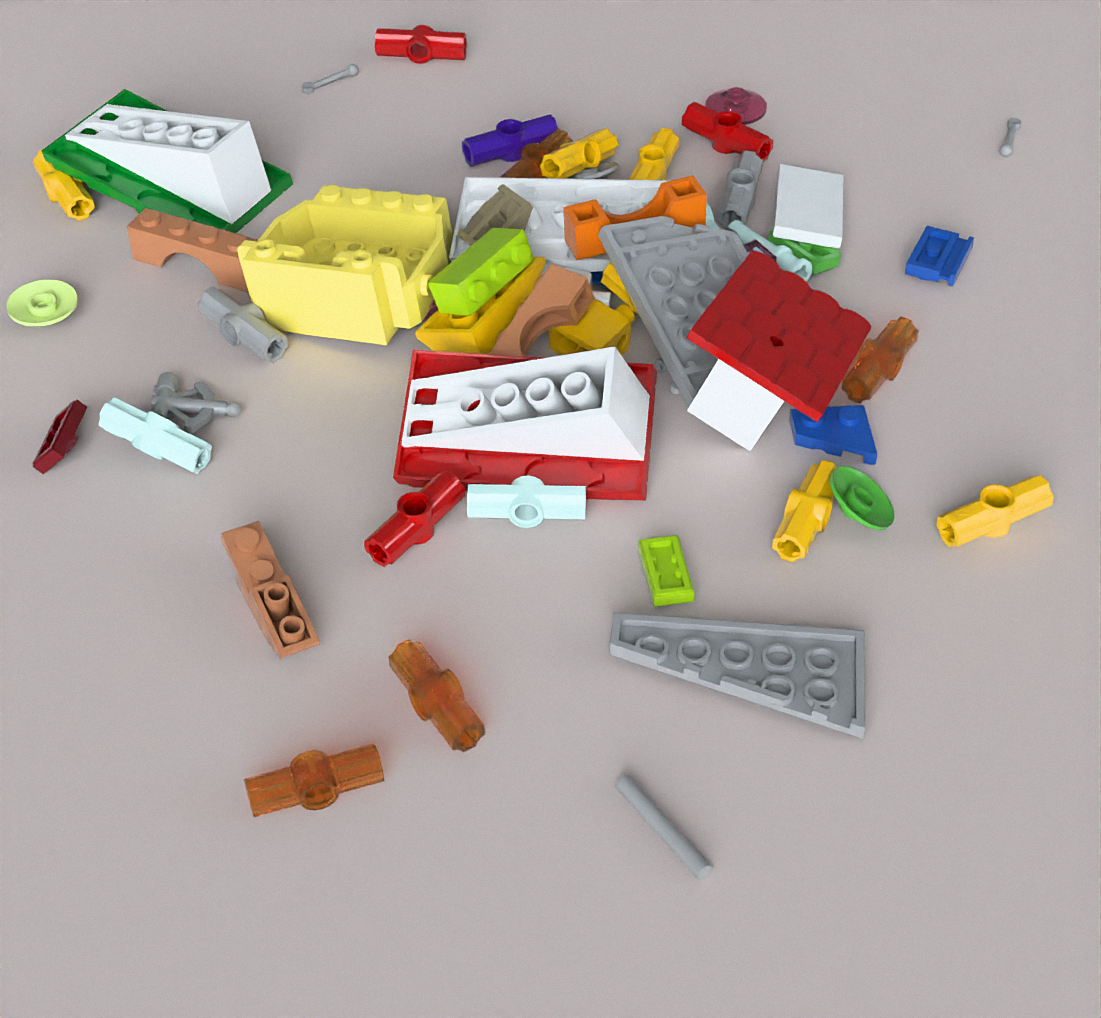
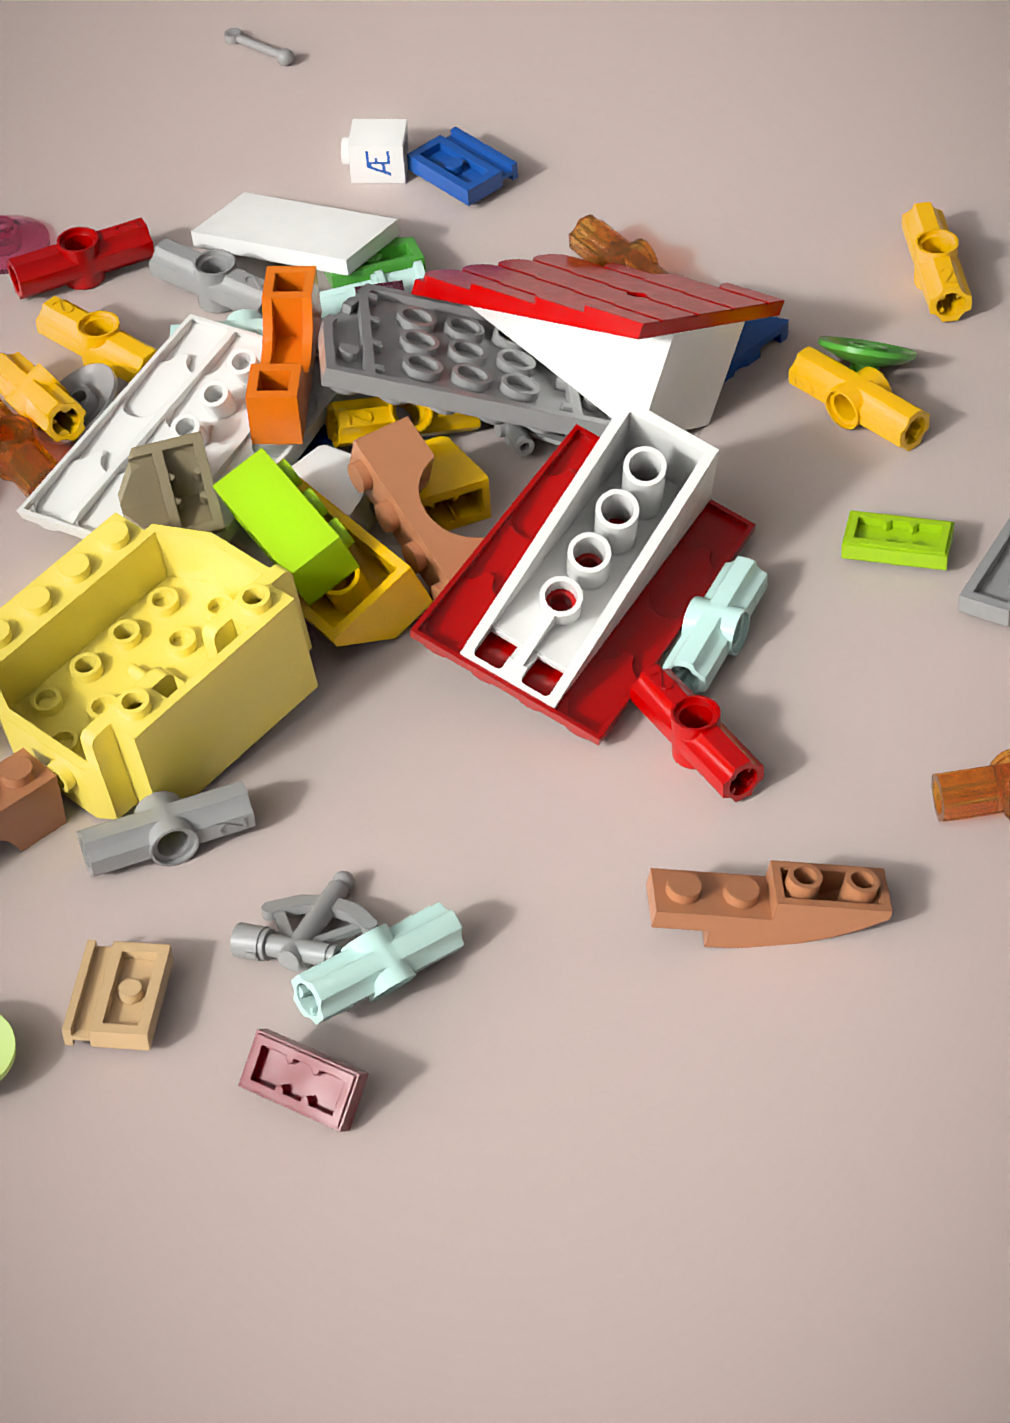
camera: 65 degrees left, 0 degrees up
(107, 348) = (118, 995): none -> tan plate
(923, 209) = (377, 150): none -> white brick

